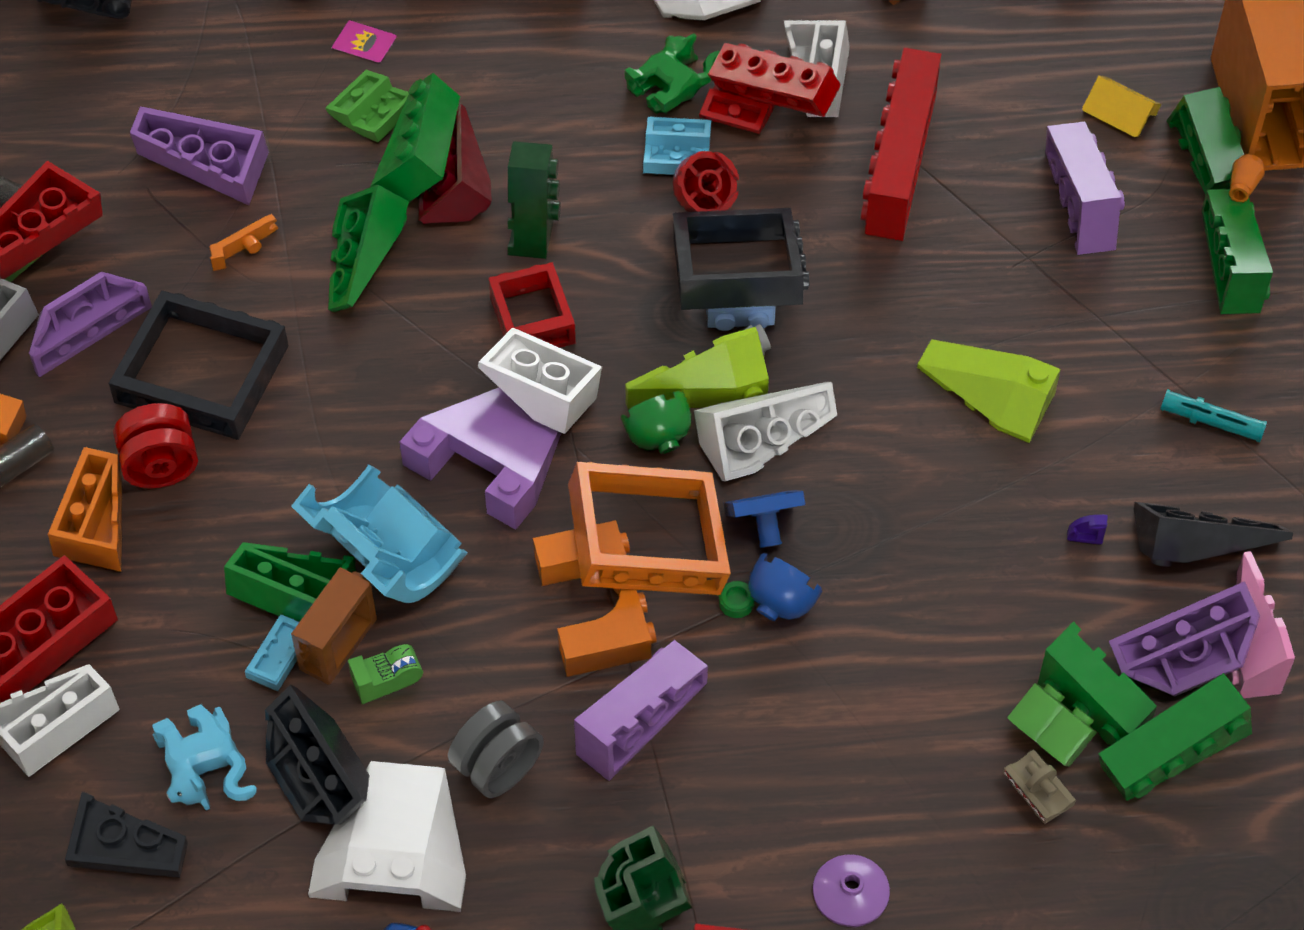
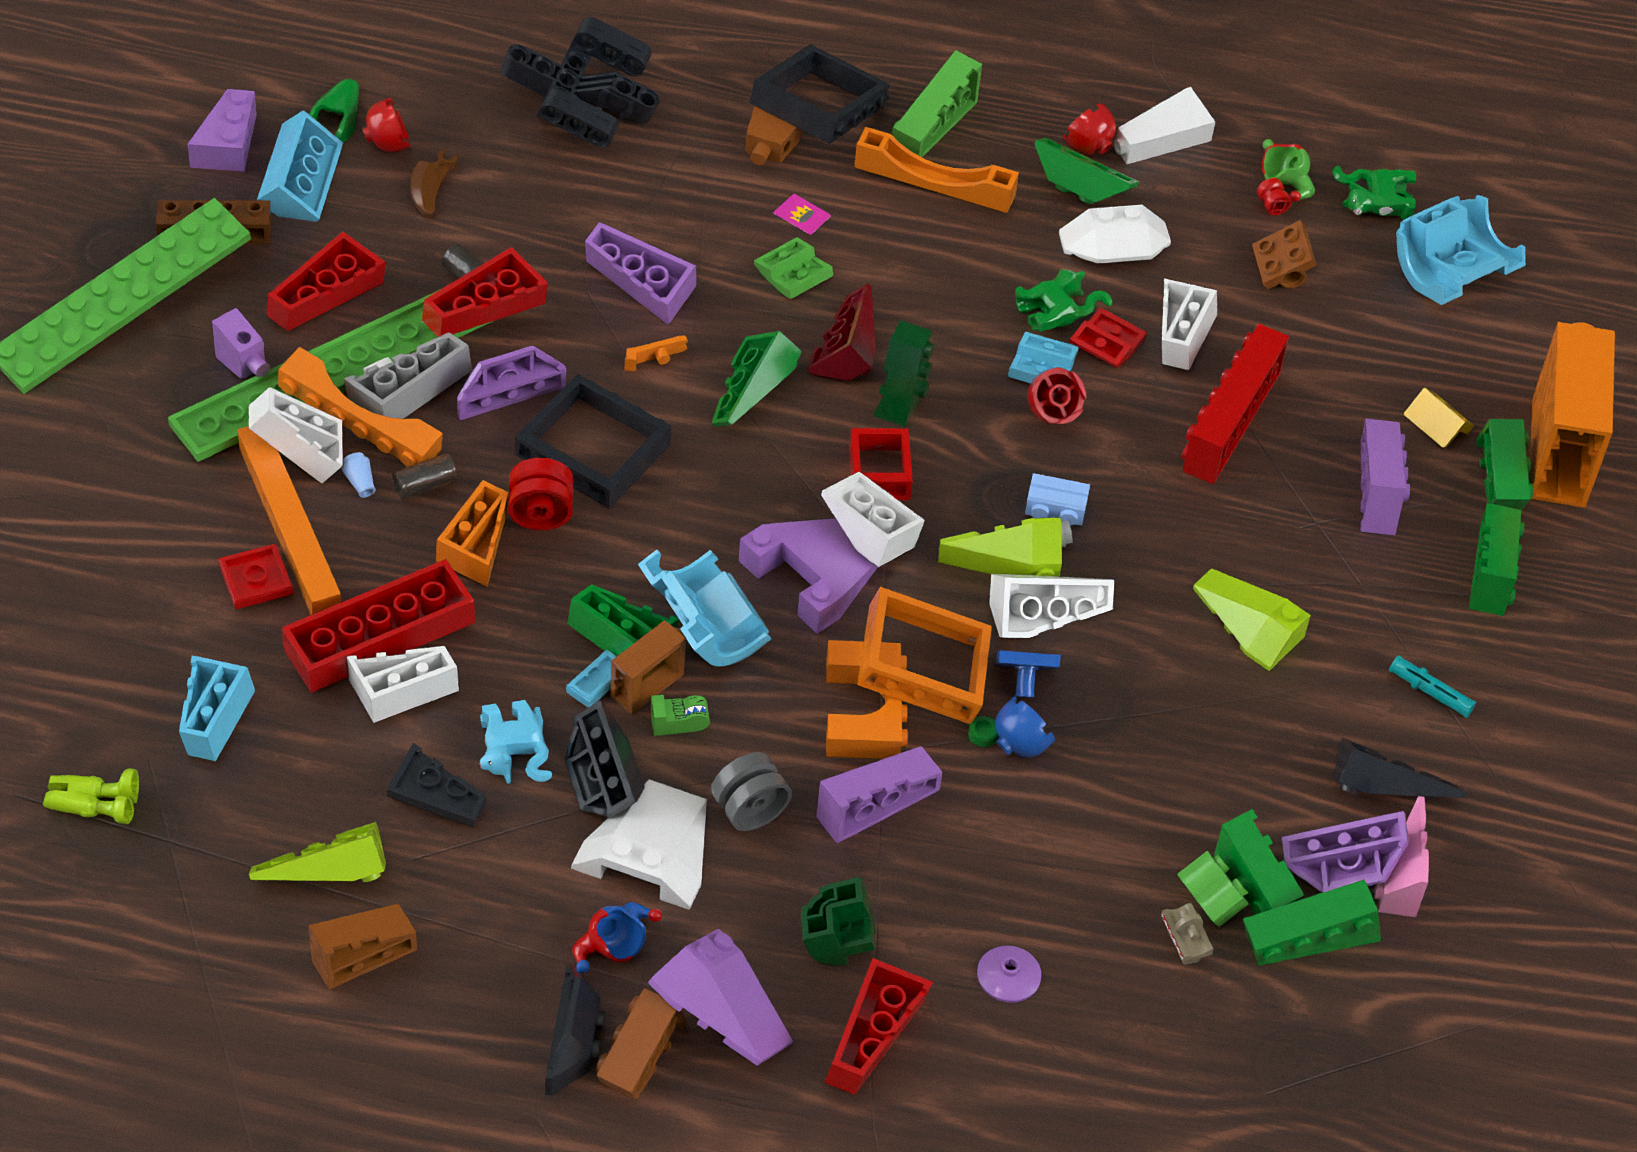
camera: 10 degrees right, 5 degrees down
(420, 140) = (825, 304): green wedge -> none
(658, 422) = (959, 576): green cylinder -> none
(739, 289) = (1062, 485): black window -> none
(775, 79) = (1140, 324): red brick -> none
(1088, 529) = (1295, 749): dark purple tile -> none
(1246, 175) = (1523, 498): orange cone -> none

